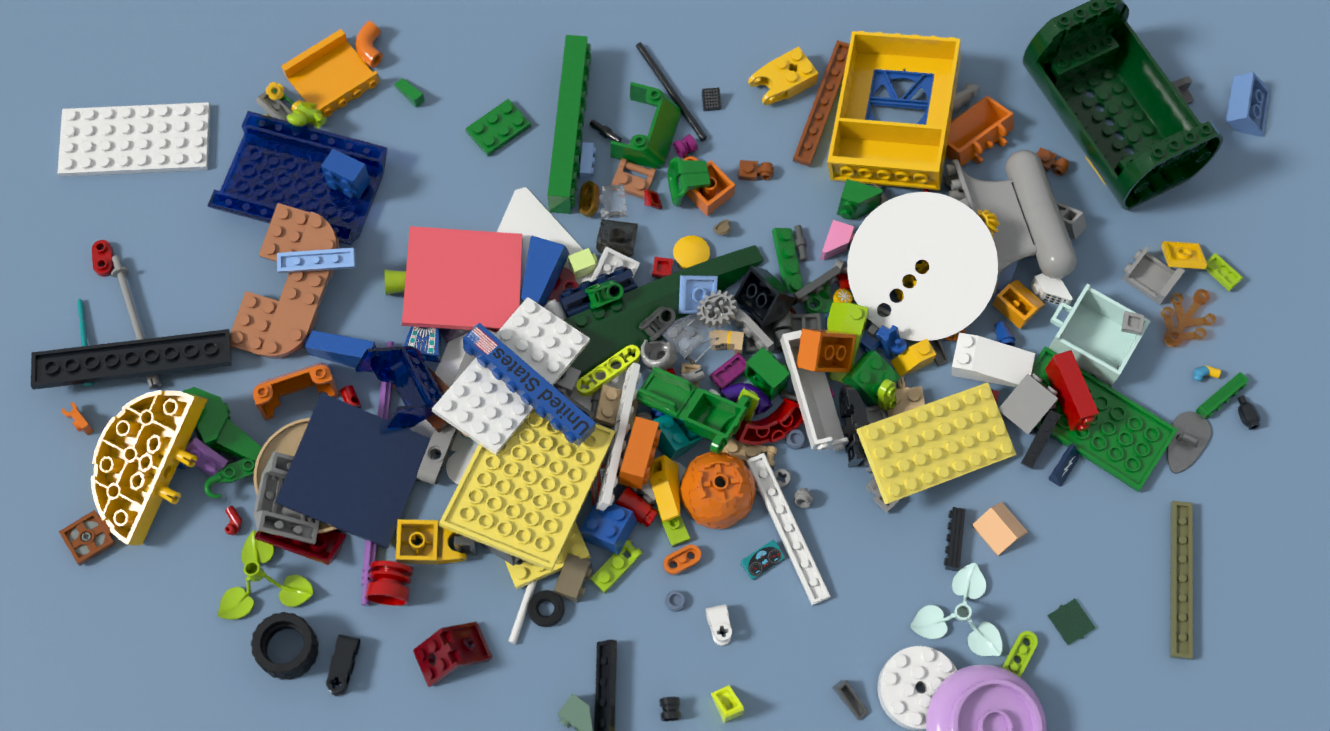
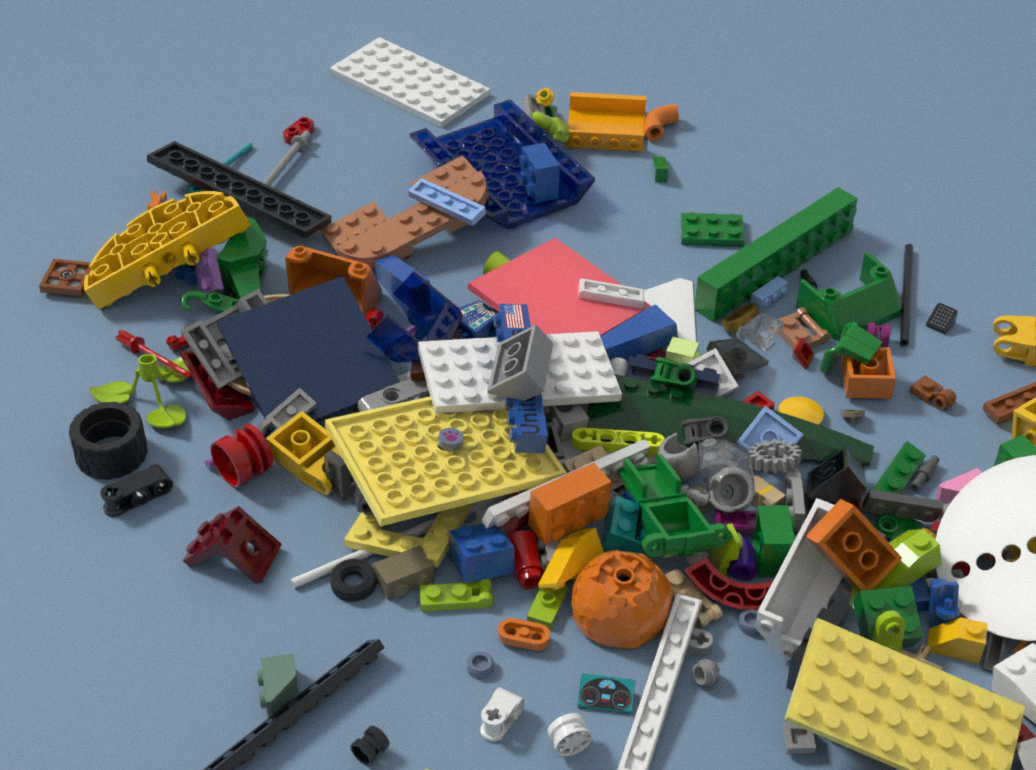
camera: 45 degrees right, 25 degrees down
(208, 552) = (137, 345): none -> red piece
(386, 529) = (293, 405): none -> light grey hinge
(493, 247) = (611, 293): none -> white tile
(529, 469) = (450, 439): none -> sand blue tile
(533, 383) = (521, 365): none -> light grey slope
(716, 358) = (738, 488): none -> light grey piece
(771, 605) = (569, 733): none -> white wheel

